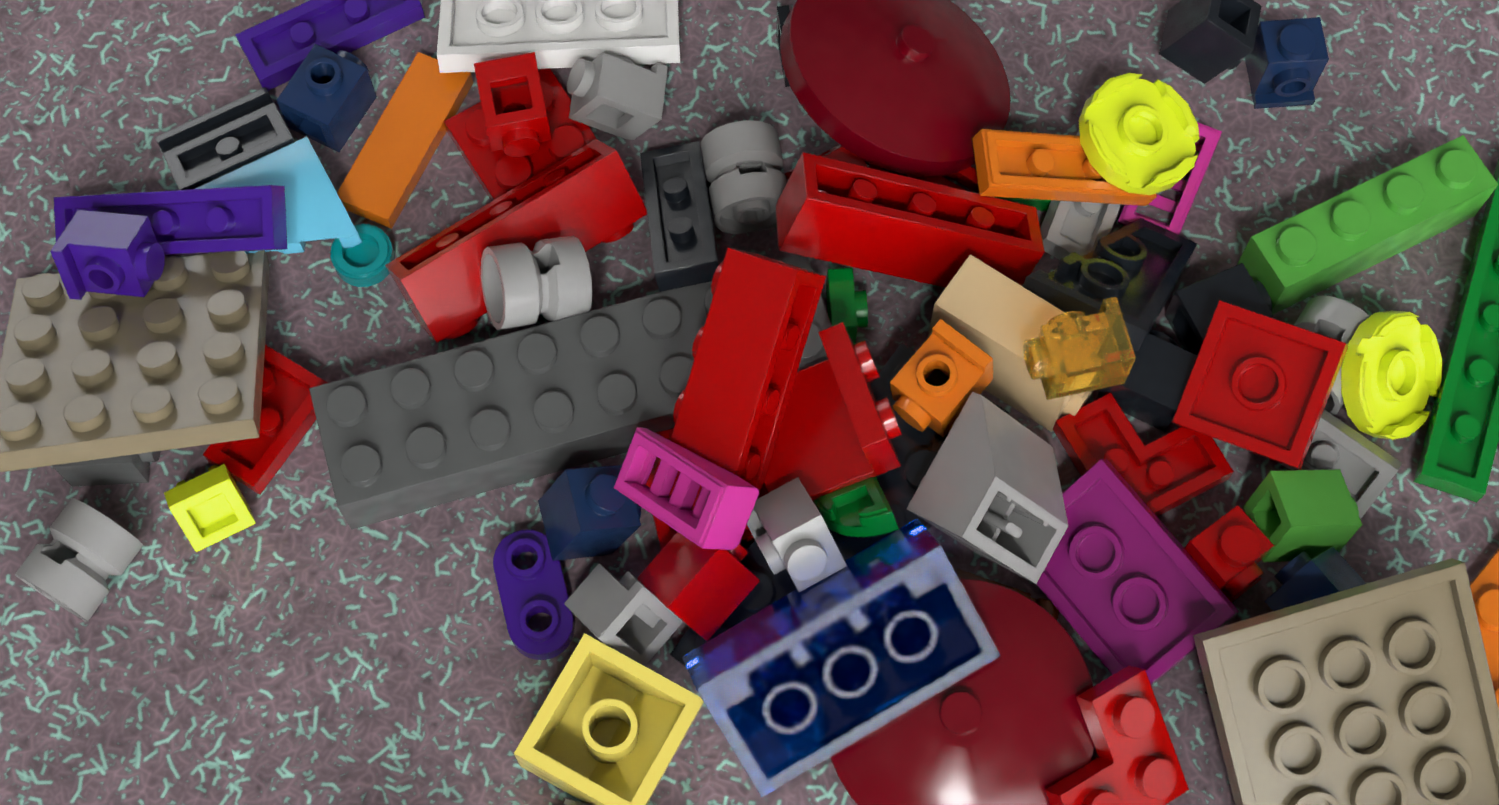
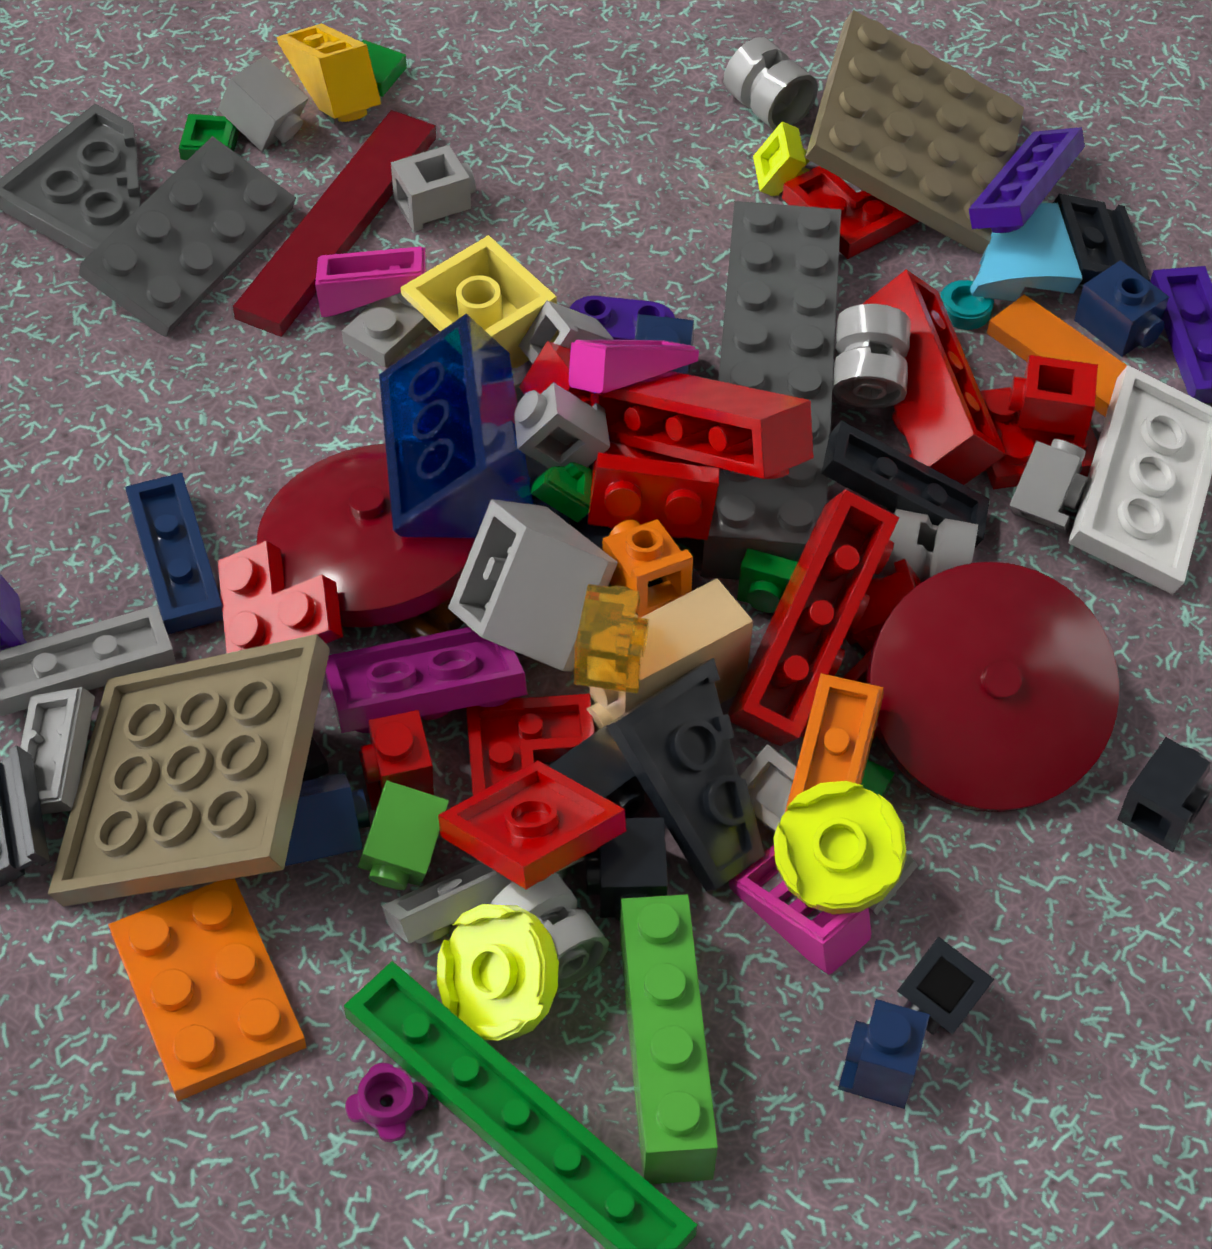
camera: 110 degrees right, 15 degrees down
(108, 254) = (1005, 126): dark purple brick -> none

